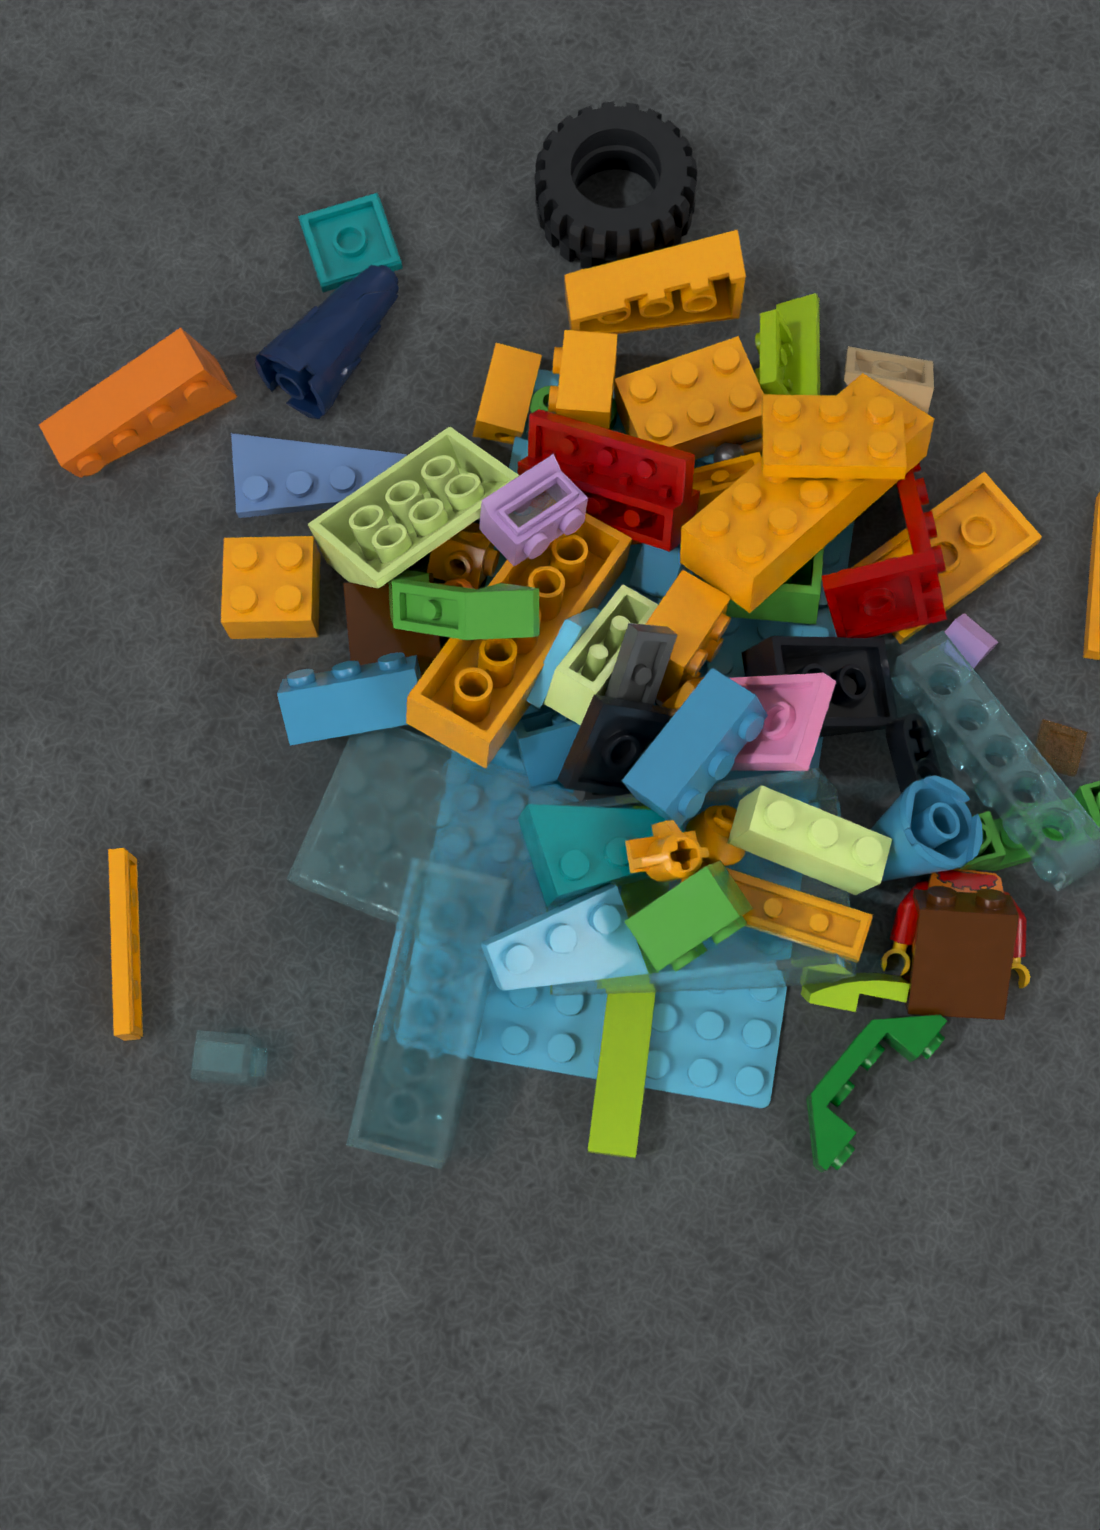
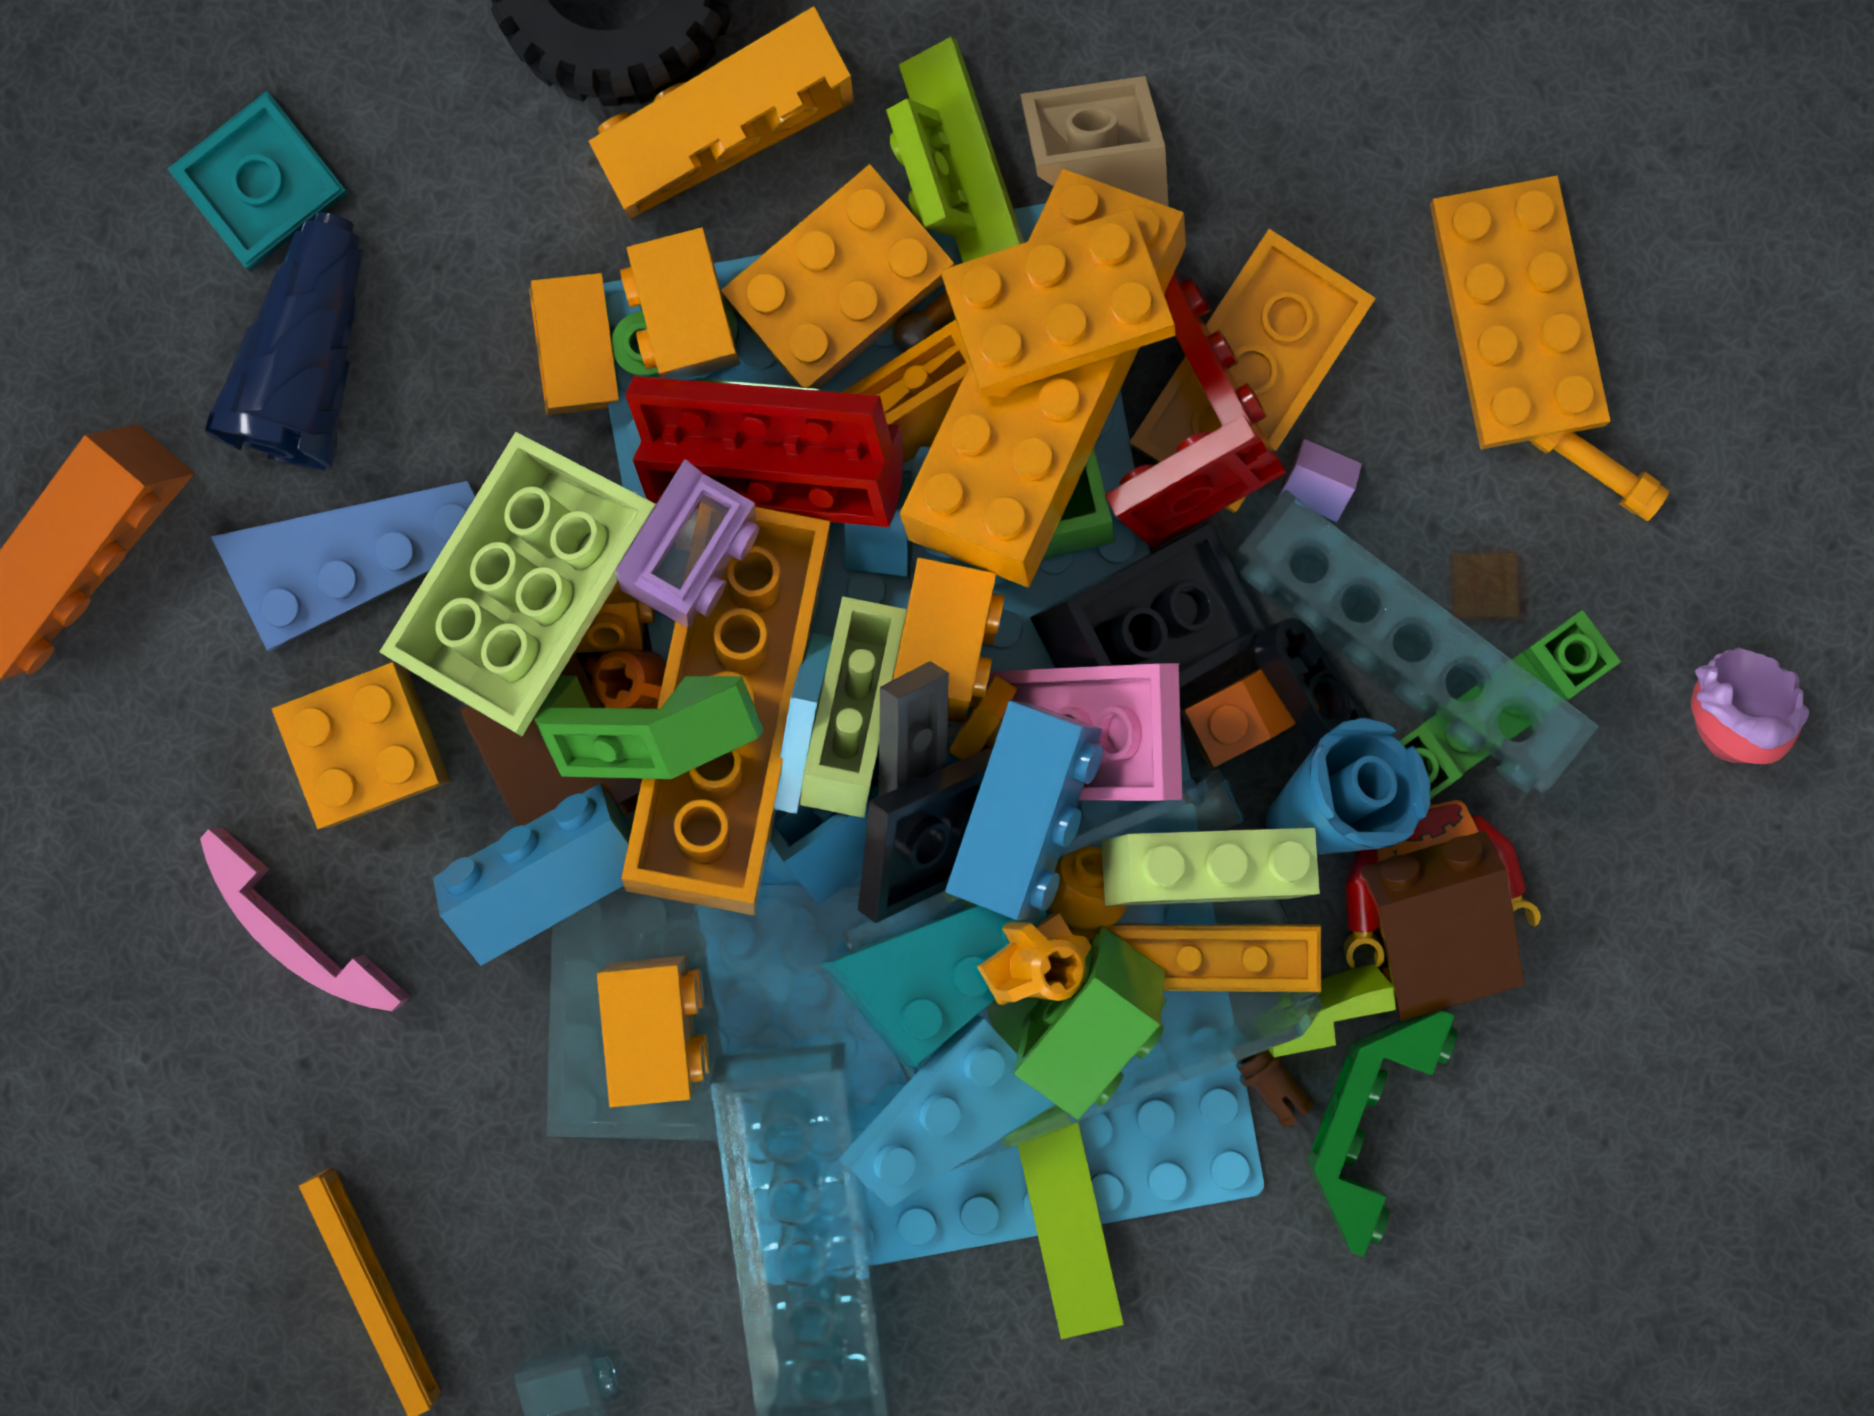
camera: 25 degrees left, 15 degrees up
(156, 646) = (236, 874): none -> bright pink slope
(386, 815) = (651, 1030): none -> light orange brick
(800, 1028) = (1274, 1083): none -> reddish brown pin
(860, 769) = (1236, 718): none -> orange slope

